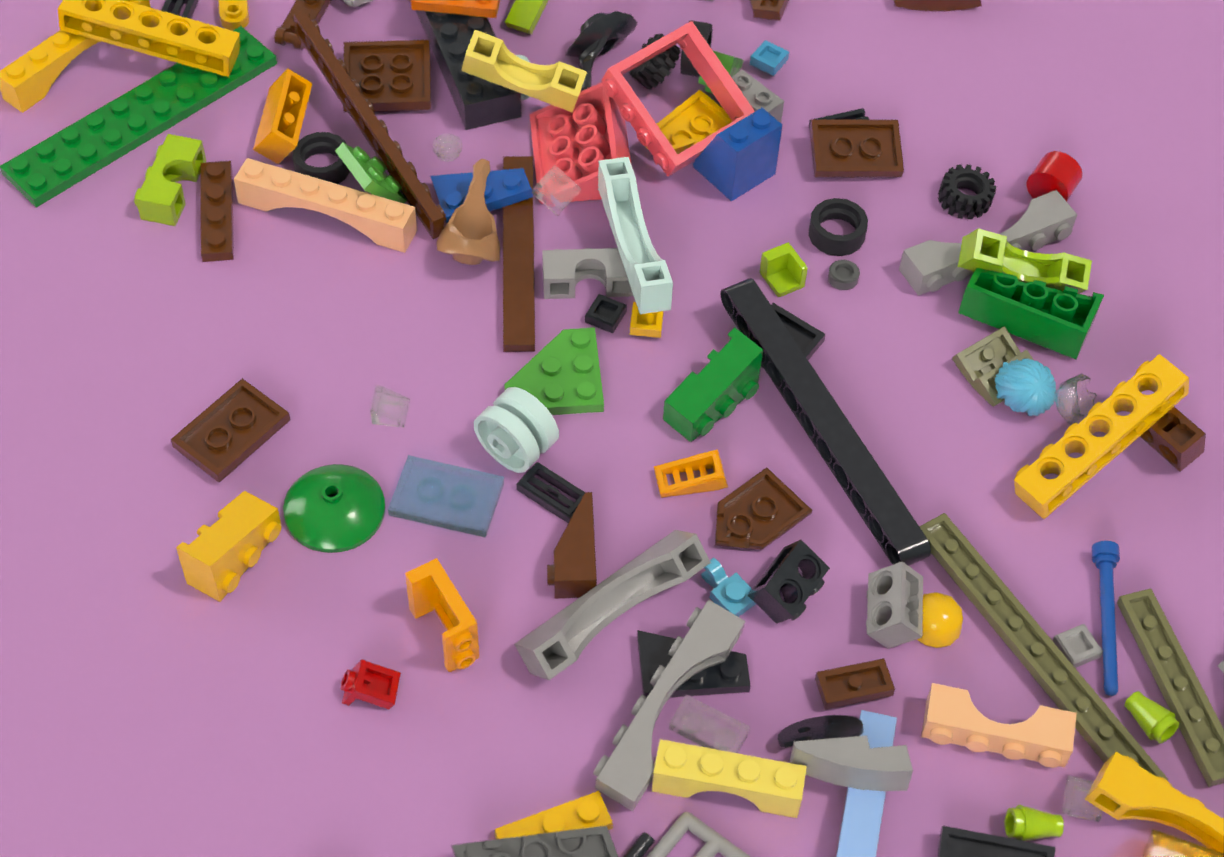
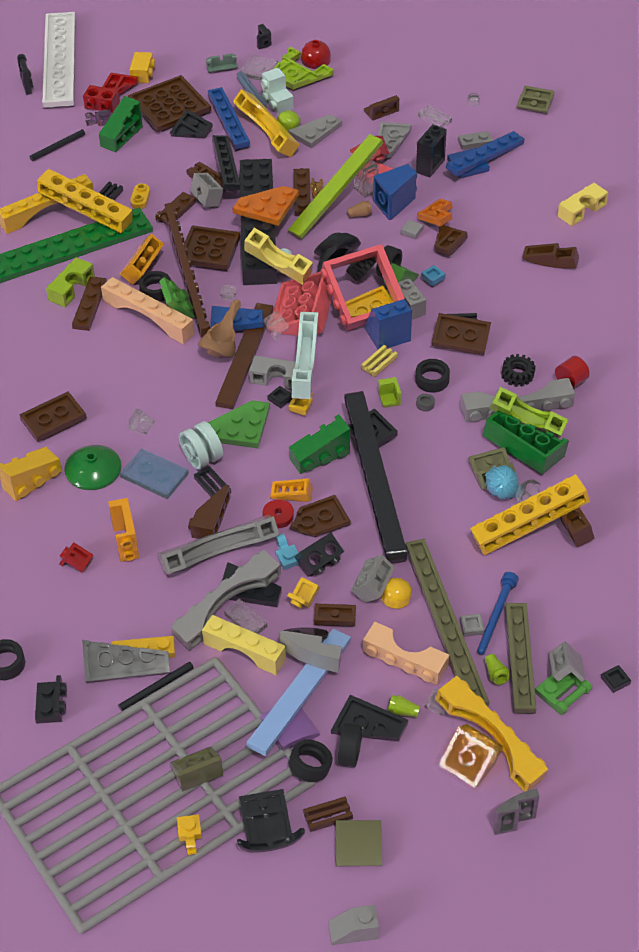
camera: 20 degrees right, 5 degrees down
(687, 509) = (284, 508): none -> red piece
(749, 202) = (376, 359): none -> light yellow tile
(789, 657) = (304, 593): none -> yellow bracket

